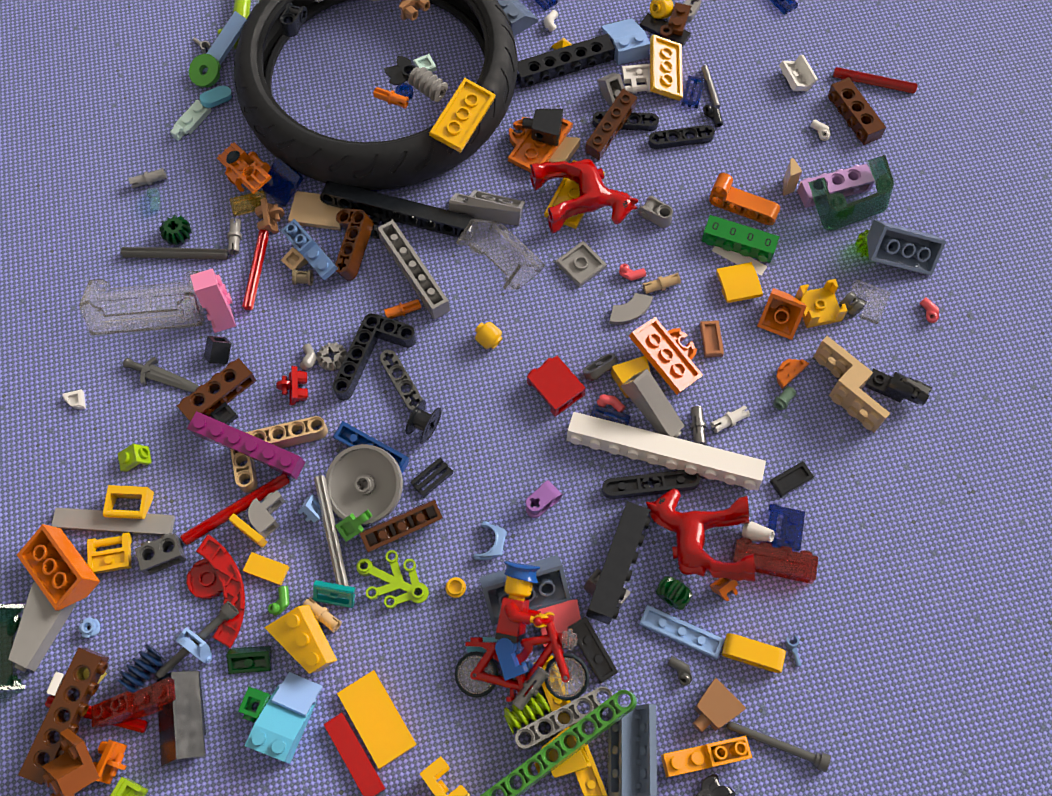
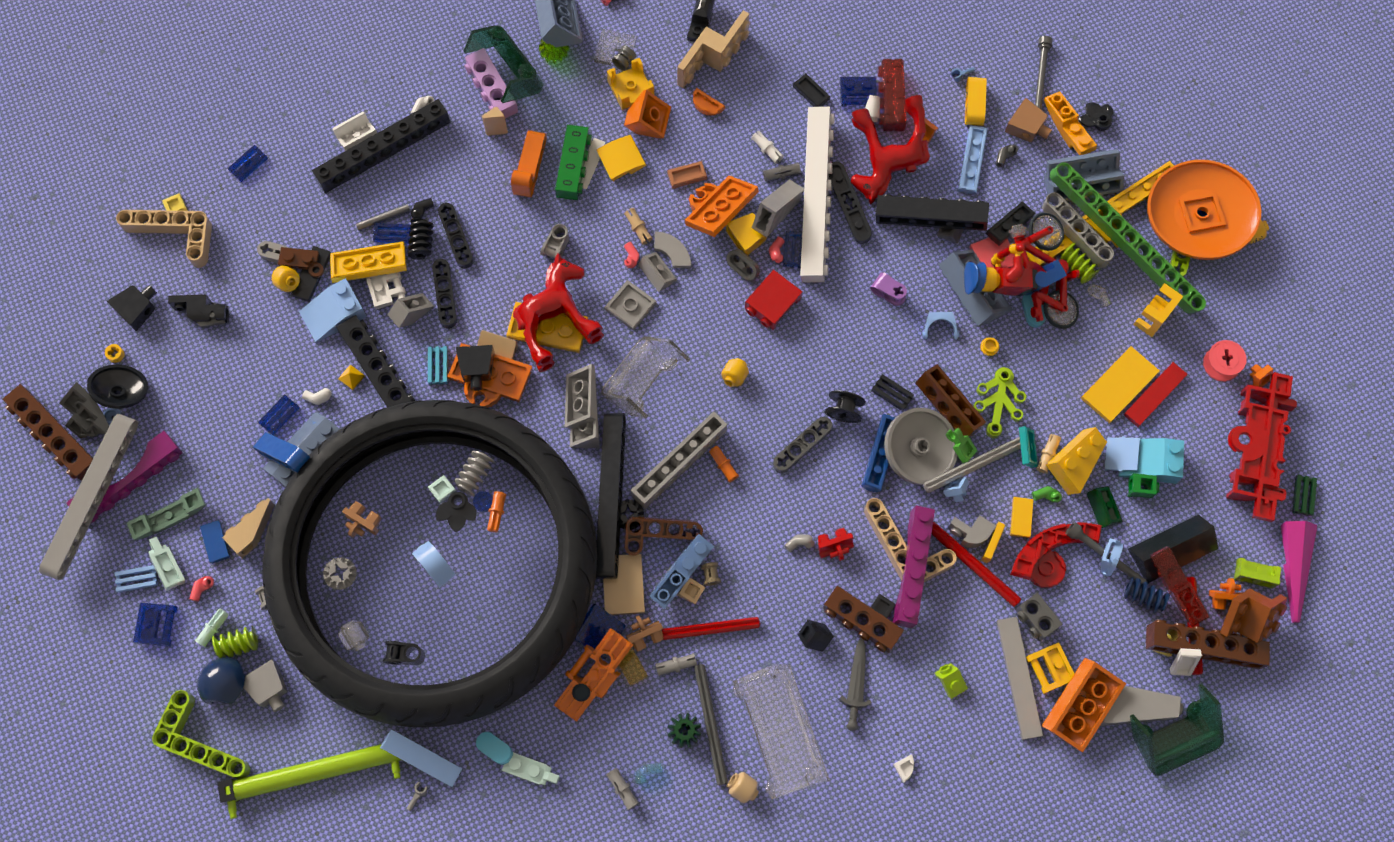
camera: 105 degrees left, 5 degrees up
(93, 631) = (1123, 665): light blue plate -> none
(110, 264) = (743, 787): none -> tan head
(127, 492) = (988, 668): yellow tile -> none
(199, 64) = (471, 777): bright green tile -> none
(214, 298) = (767, 648): bright pink wedge -> none
(325, 361) = (790, 528): light grey gear -> none
(357, 43) = (434, 563): none -> light blue brick
(365, 349) = (779, 485): black beam -> none
(462, 115) = (507, 428): yellow tile -> none
(488, 729) = (1100, 293): none -> clear arm
(521, 700) = (1066, 255): flat silver pin -> none
(559, 103) = (437, 351): none -> medium azure tile
(611, 124) = (460, 300): reddish brown brick -> none
(611, 293) = (656, 271): none -> light grey slope
(674, 592) = (945, 165): dark green gear -> none
(680, 107) = (420, 238): none -> black piece
(781, 92) = (381, 146): none -> black brick
(782, 401) = (734, 104): sand green pin -> none
(856, 111) = (396, 66): reddish brown brick -> none
(875, 80) = (347, 65): red axle -> none

